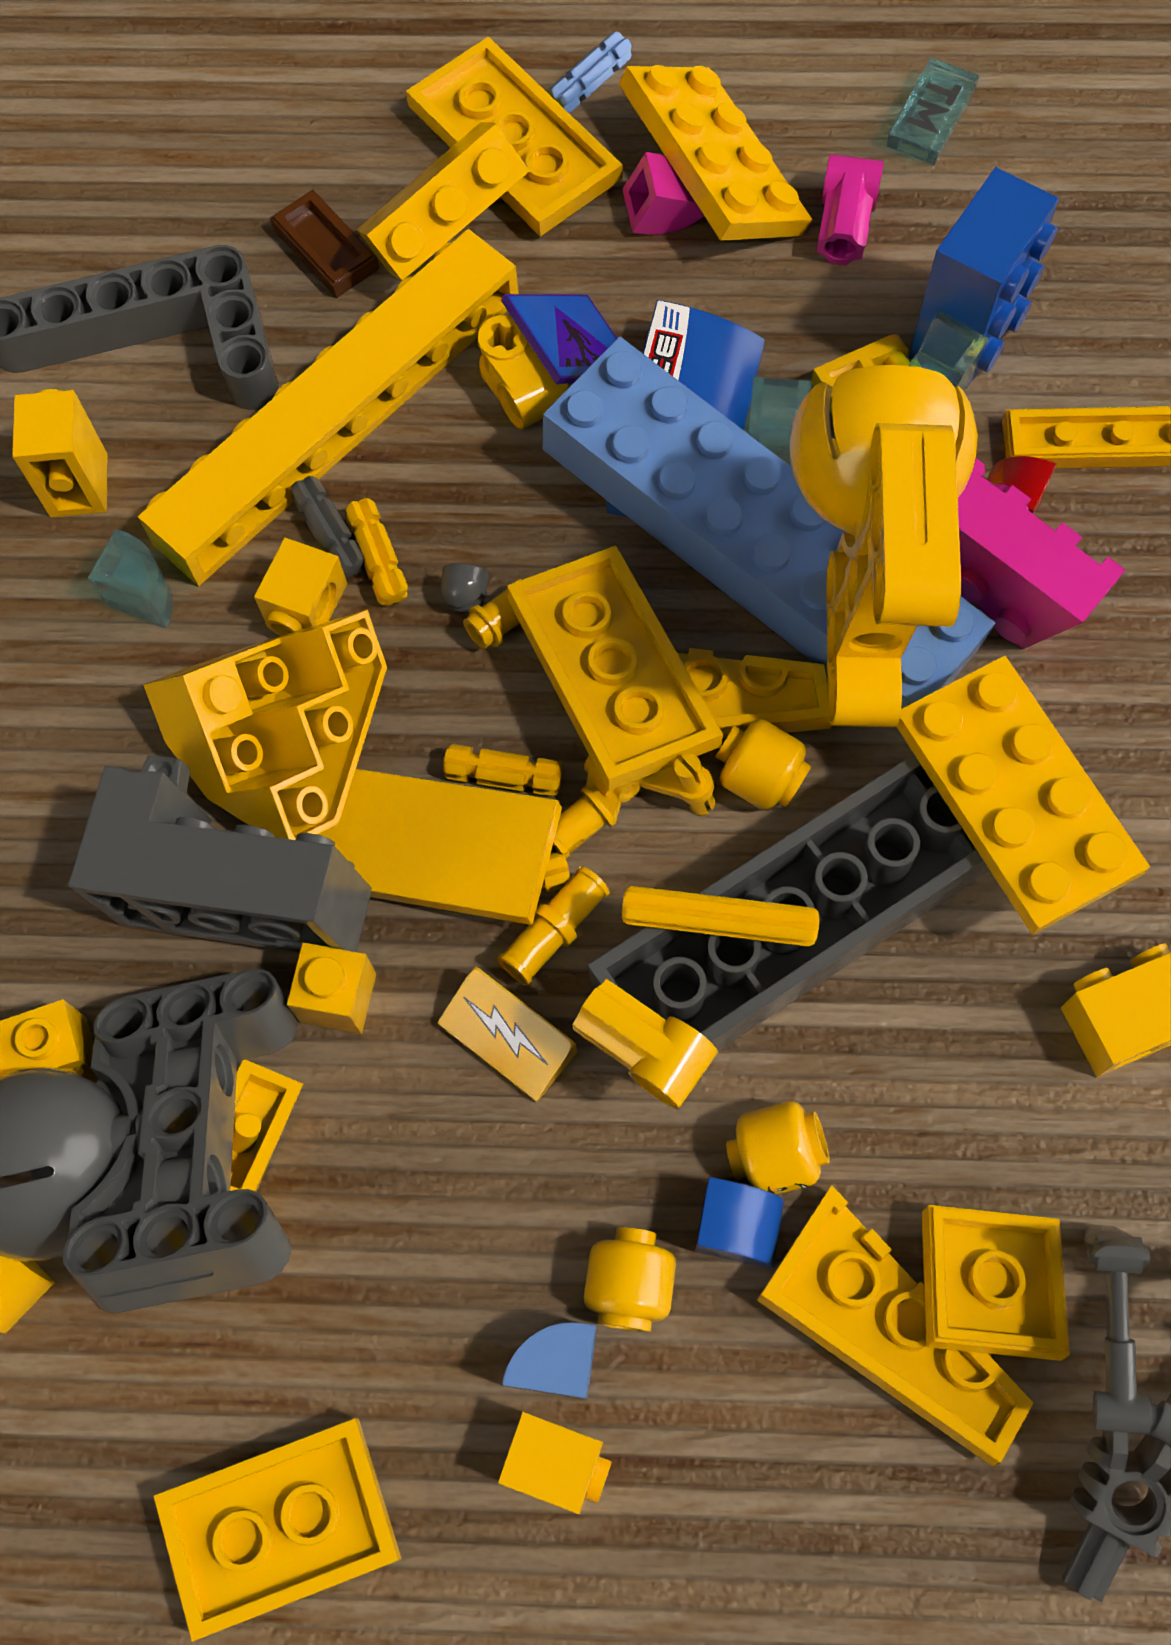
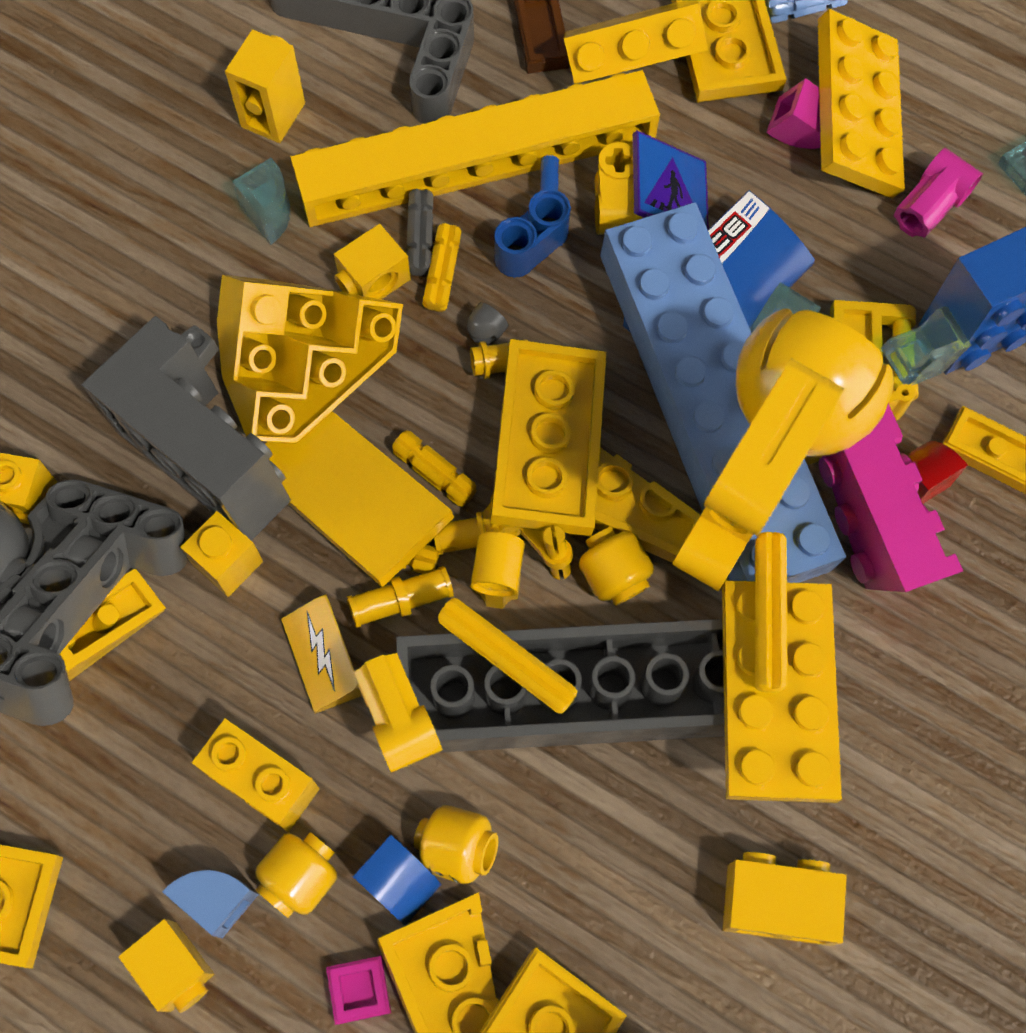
camera: 25 degrees right, 0 degrees up
(450, 461) = (530, 231): none -> blue beam
(520, 1202) = (256, 775): none -> yellow brick
(647, 834) = (497, 568): none -> yellow piece
(769, 1363) = (358, 990): none -> dark pink tile
(968, 716) = (771, 612): none -> yellow axle

